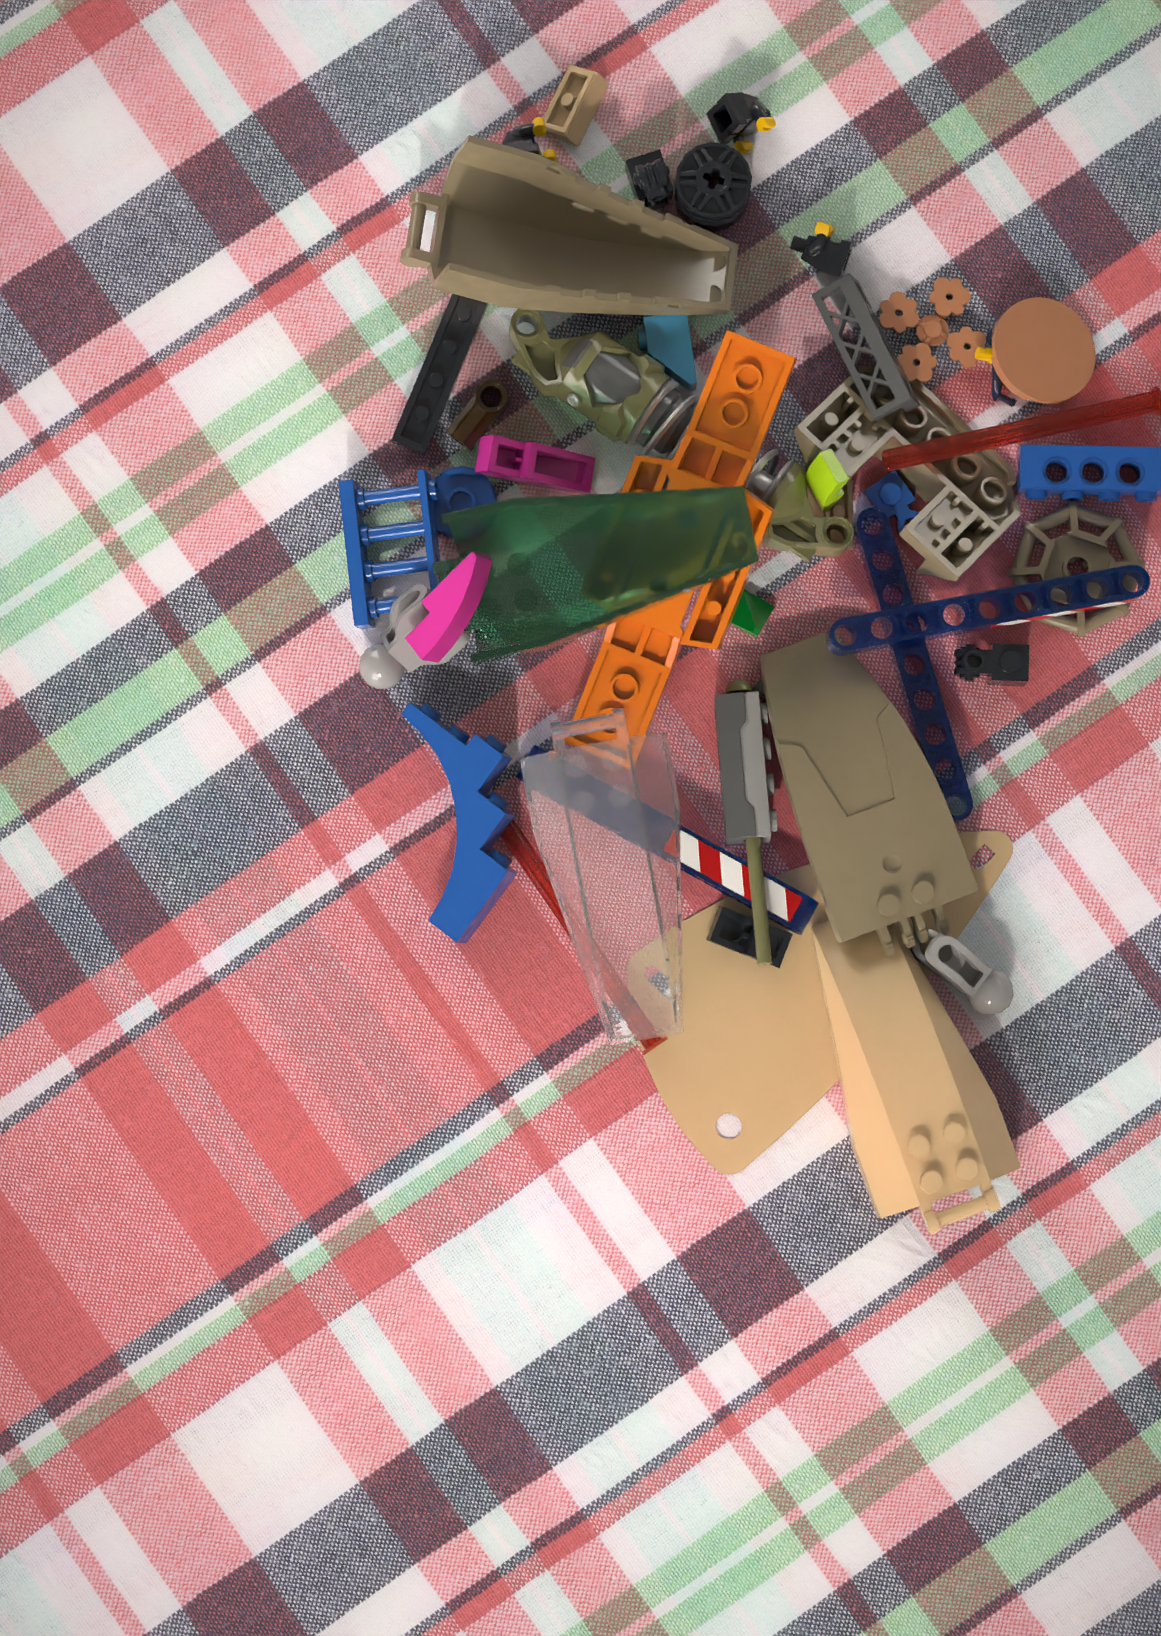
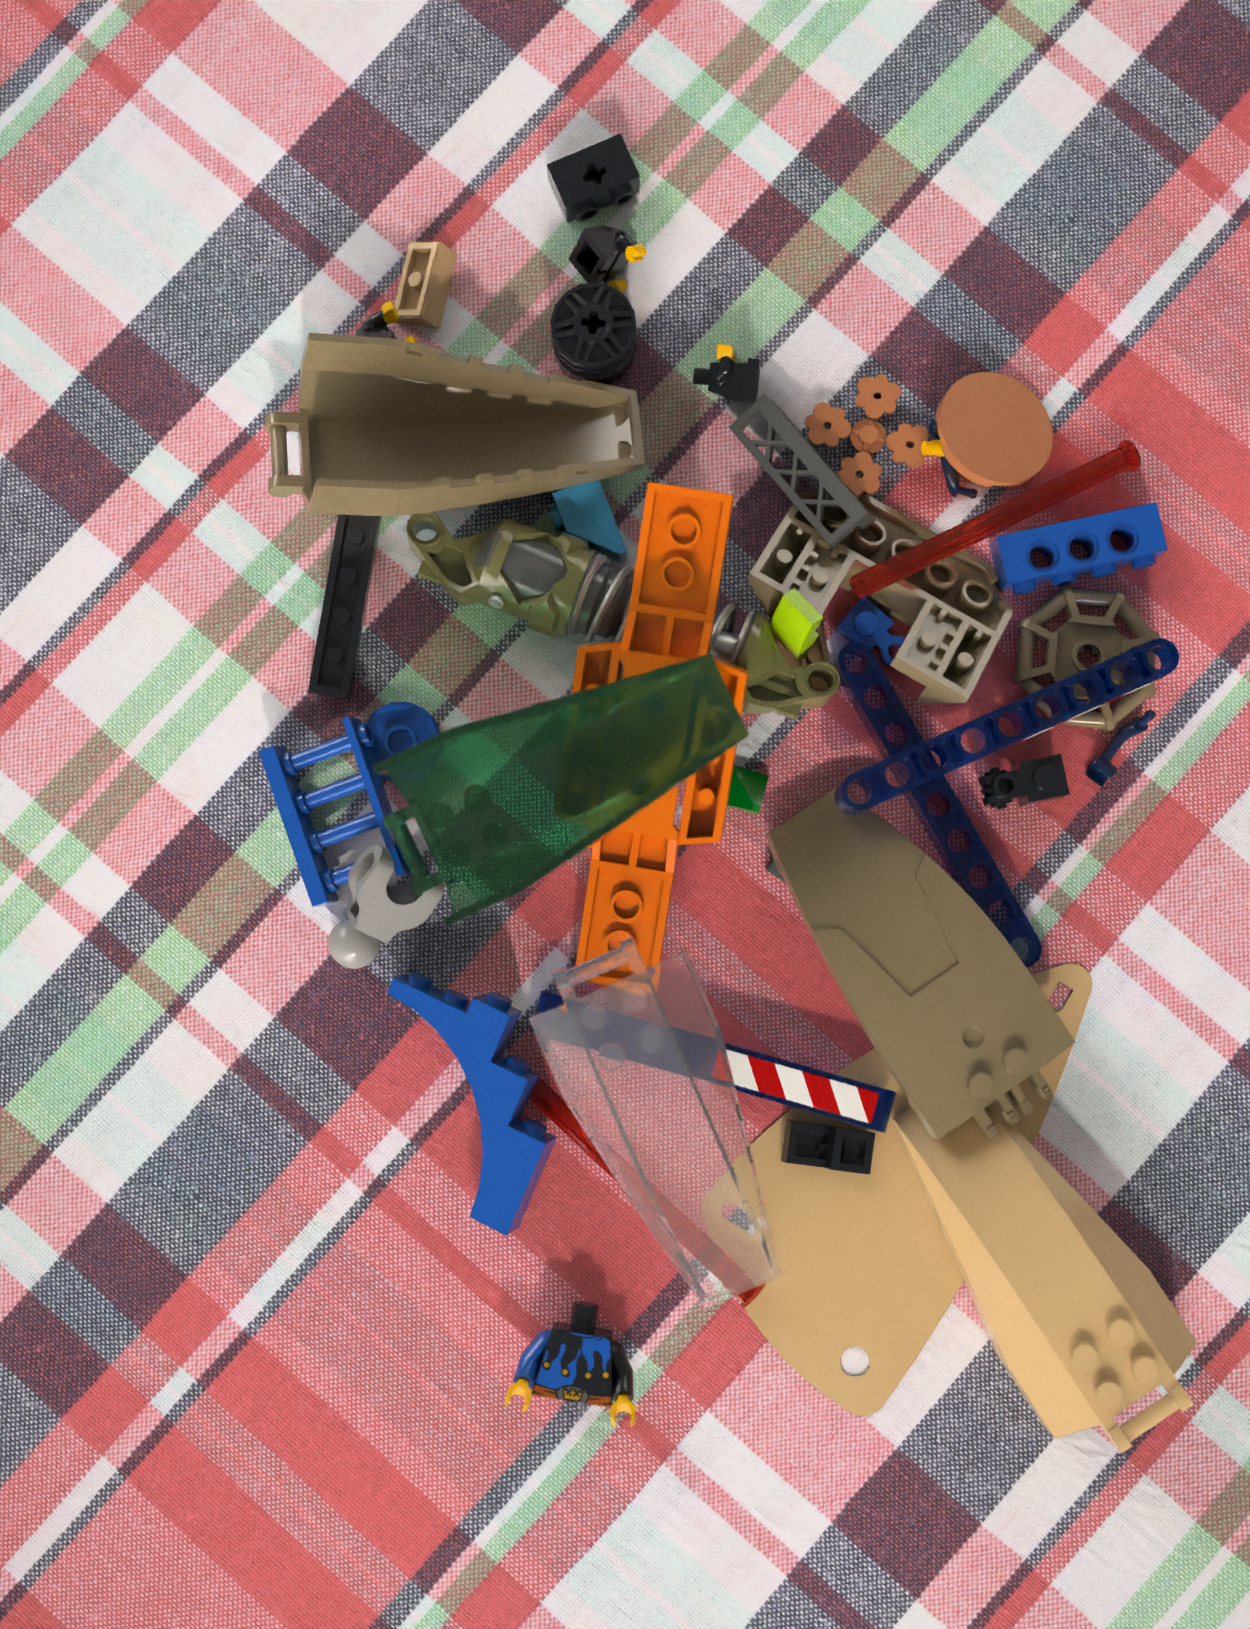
camera: 10 degrees left, 0 degrees up
(450, 608) = (411, 865): dark pink slope -> none
(476, 417) = (395, 645): dark brown piece -> none
(489, 1068) = (576, 1365): none -> torso
(534, 464) = (470, 681): dark pink slope -> none
(650, 179) = (524, 342): black brick -> none
(746, 791) = (788, 989): piece -> none
(760, 36) = (607, 164): none -> black brick
(950, 960) = (1103, 1144): light grey piece -> none
(1066, 669) = (1100, 767): none -> dark blue piece

